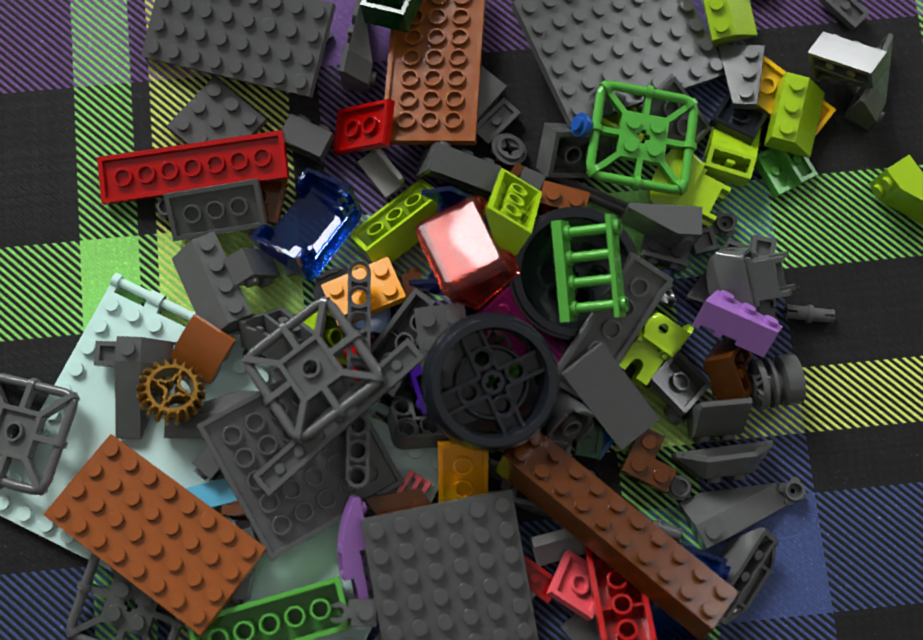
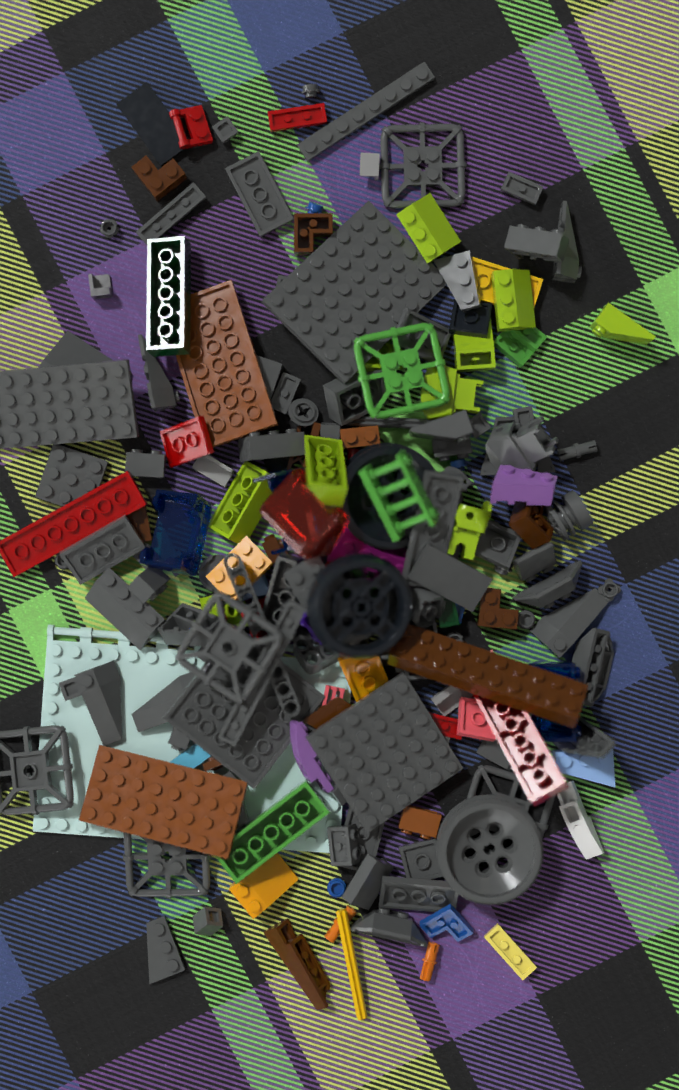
camera: 20 degrees left, 10 degrees up
(160, 386) = (138, 699): pearl gold gear -> none
(203, 348) = (139, 658): dark orange slope -> none
(359, 613) = (329, 800): dark grey plate -> none
(581, 125) = (352, 381): blue plate -> none
(673, 531) = (526, 655): dark grey pin -> none
(730, 221) = (490, 400): dark grey plate -> none

